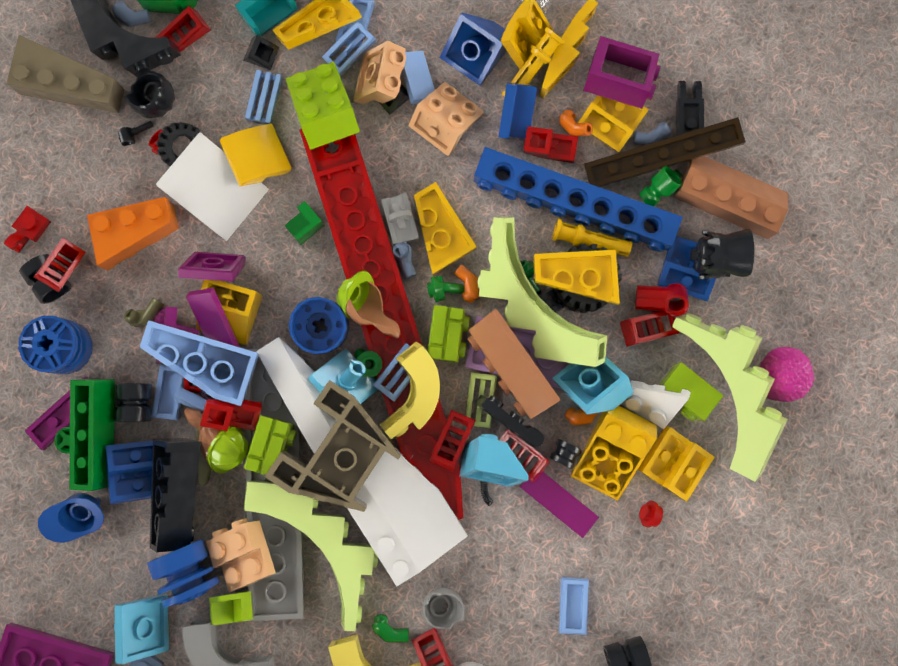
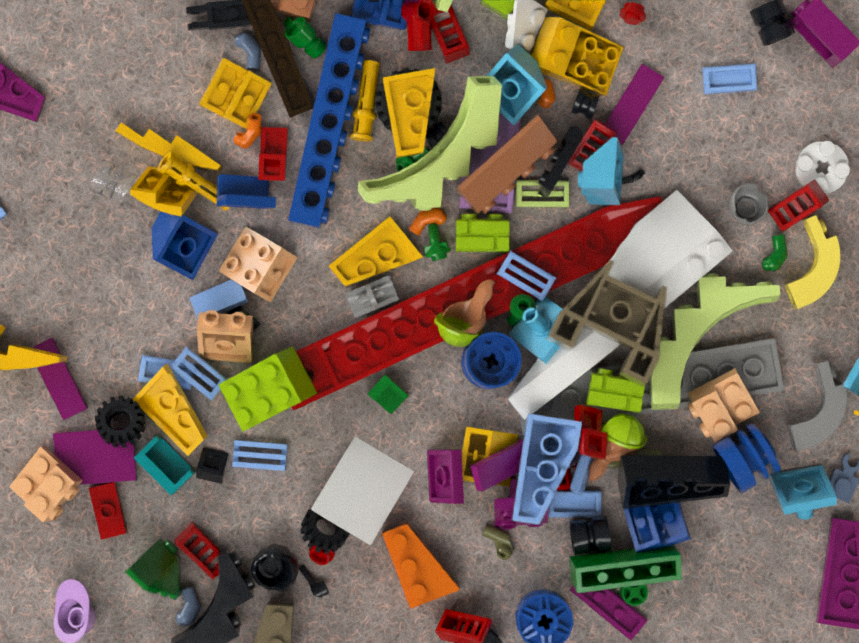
camera: 95 degrees left, 5 degrees up
(71, 518) = (709, 575): blue piece -> none
(231, 608) = (774, 408): lime panel -> none
(255, 154) = (323, 452): yellow slope -> none
(404, 257) = (408, 288): sand blue arm -> none
(423, 392) = (545, 249): light yellow arch -> none
(445, 463) = (609, 221): red slope -> none
(617, 87) = (210, 93): magenta window -> none

